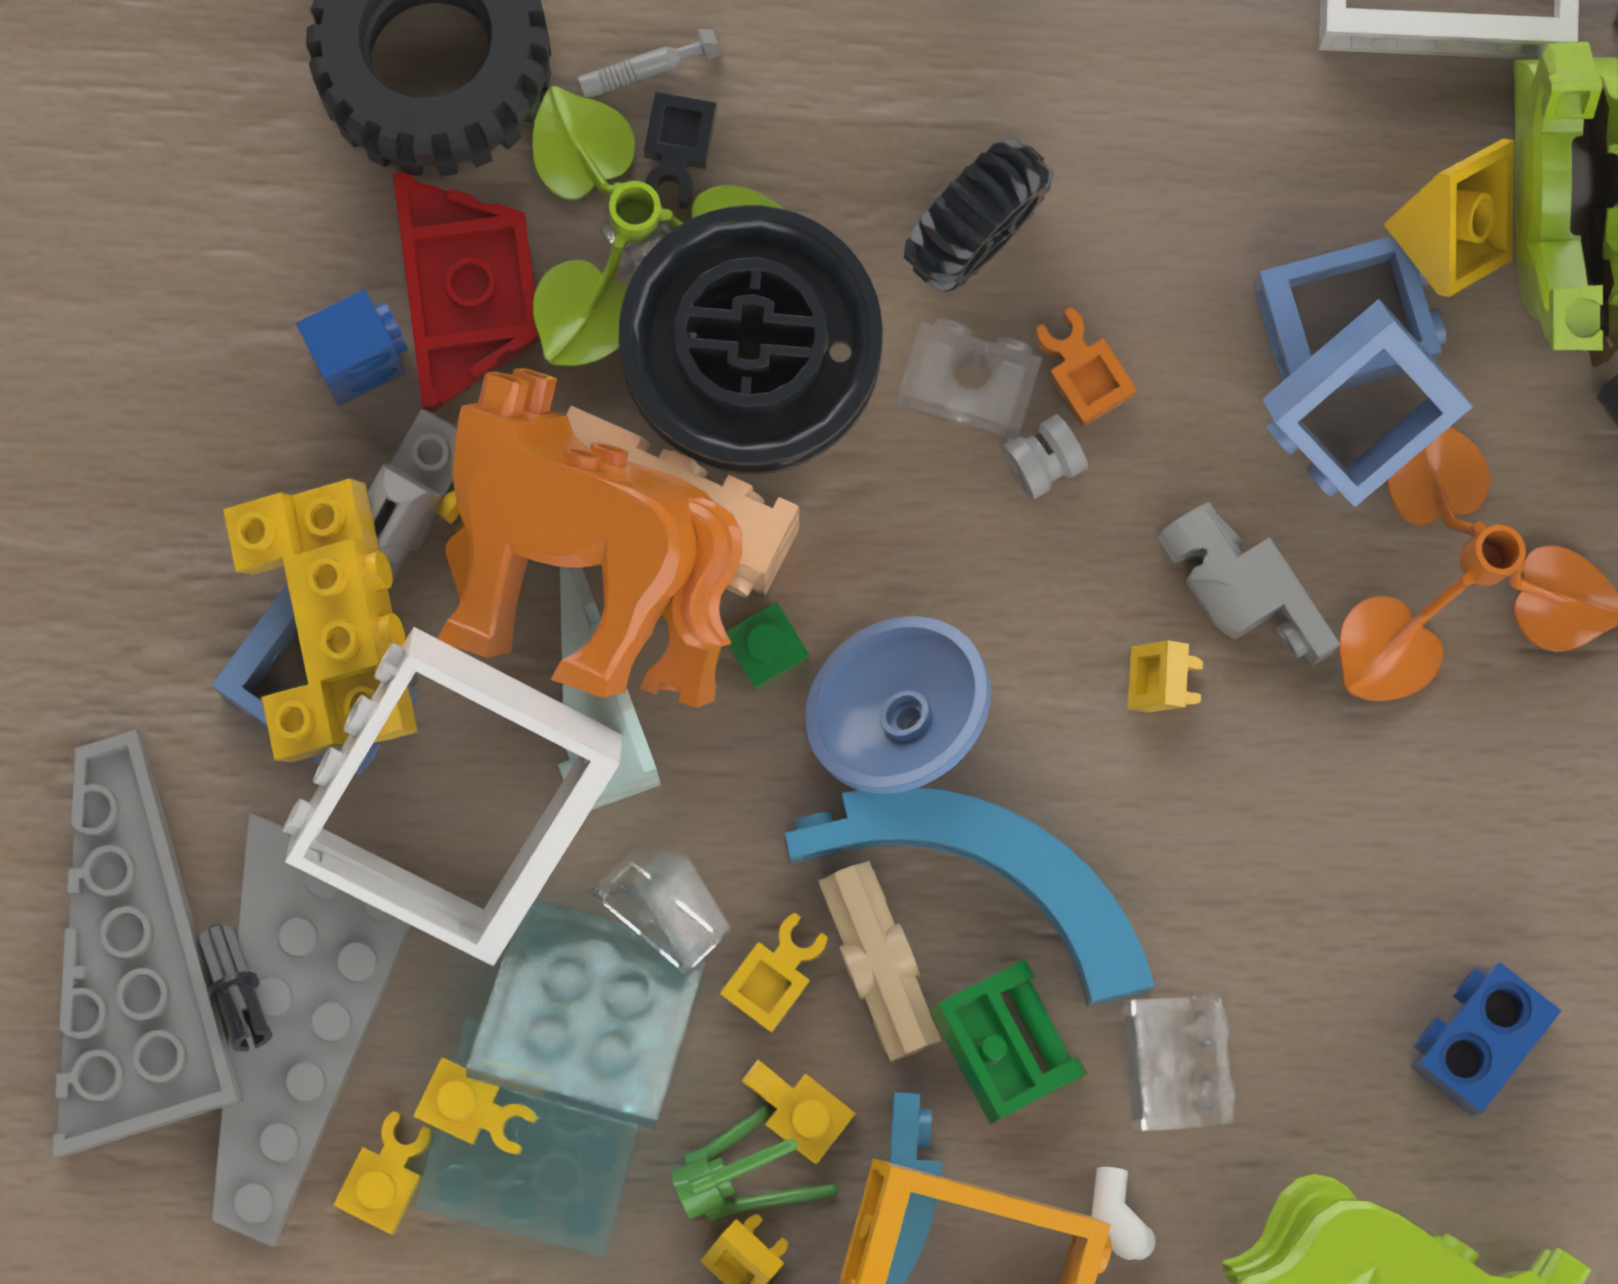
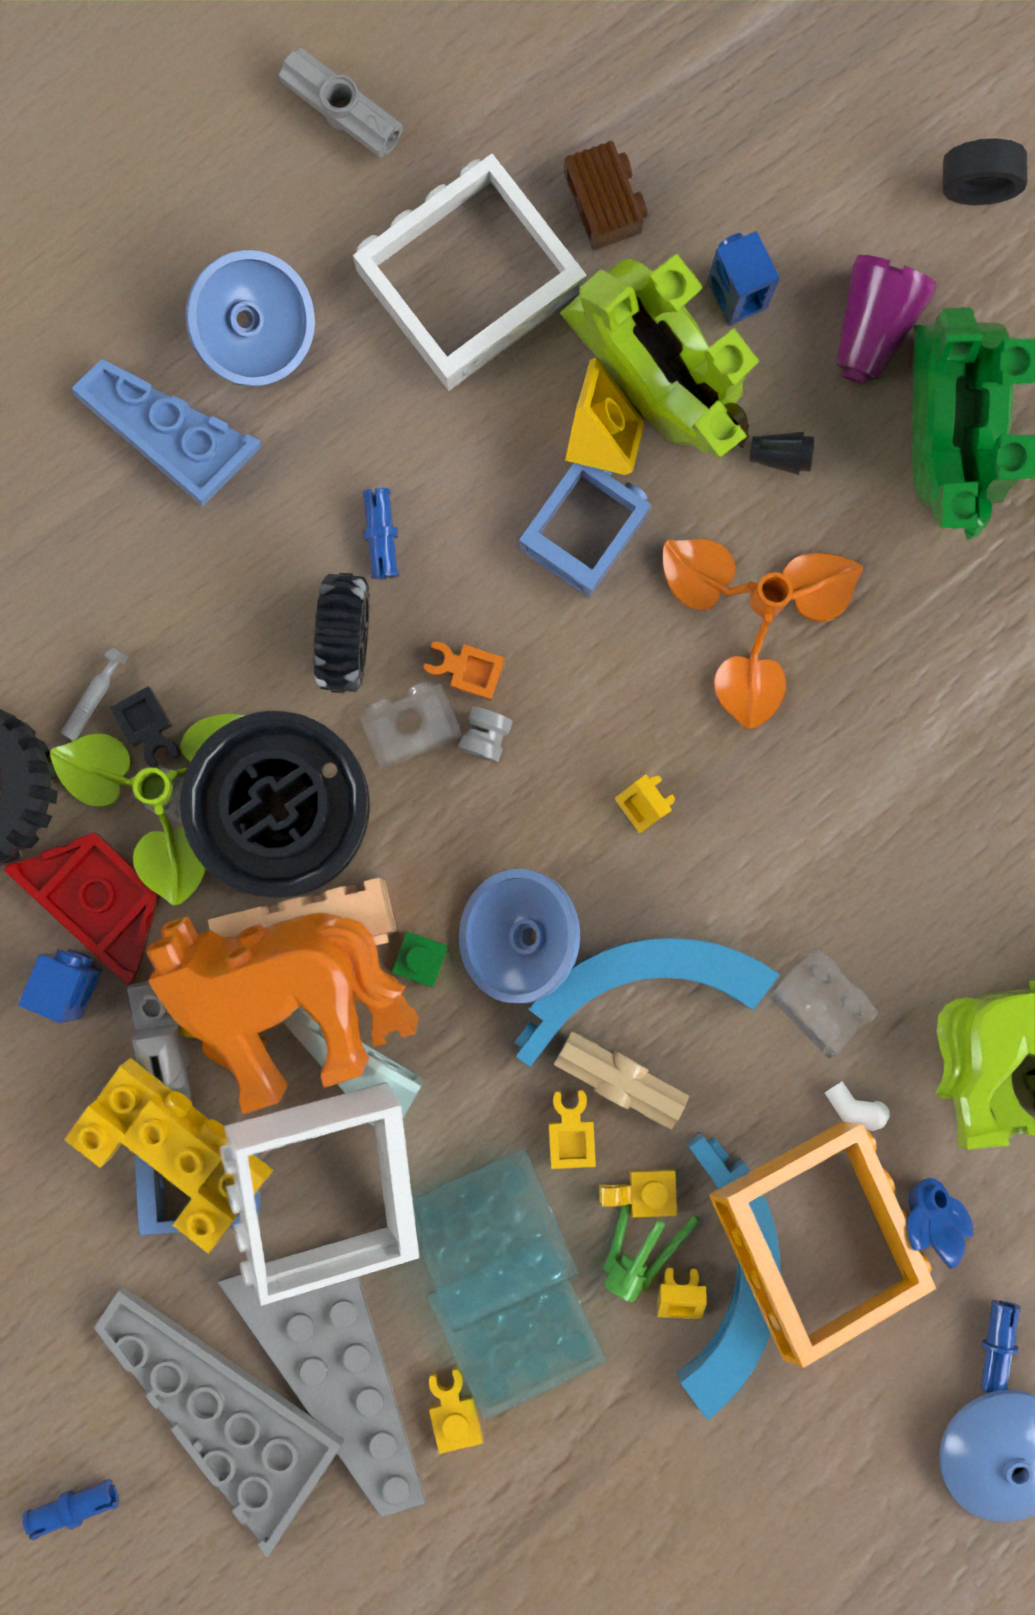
camera: 40 degrees left, 5 degrees up
(233, 987) = (288, 1385): black axle -> none
(468, 1105) = (468, 1347): yellow plate -> none
(665, 905) = (482, 1147): clear slope -> none
(994, 1051) = (722, 1078): green plate -> none
(1111, 144) = (380, 533): none -> blue pin
(1246, 587) = (650, 717): light grey plate -> none
(1335, 364) = (603, 562): medium blue window -> none
(1495, 1048) = (983, 855): blue brick -> none

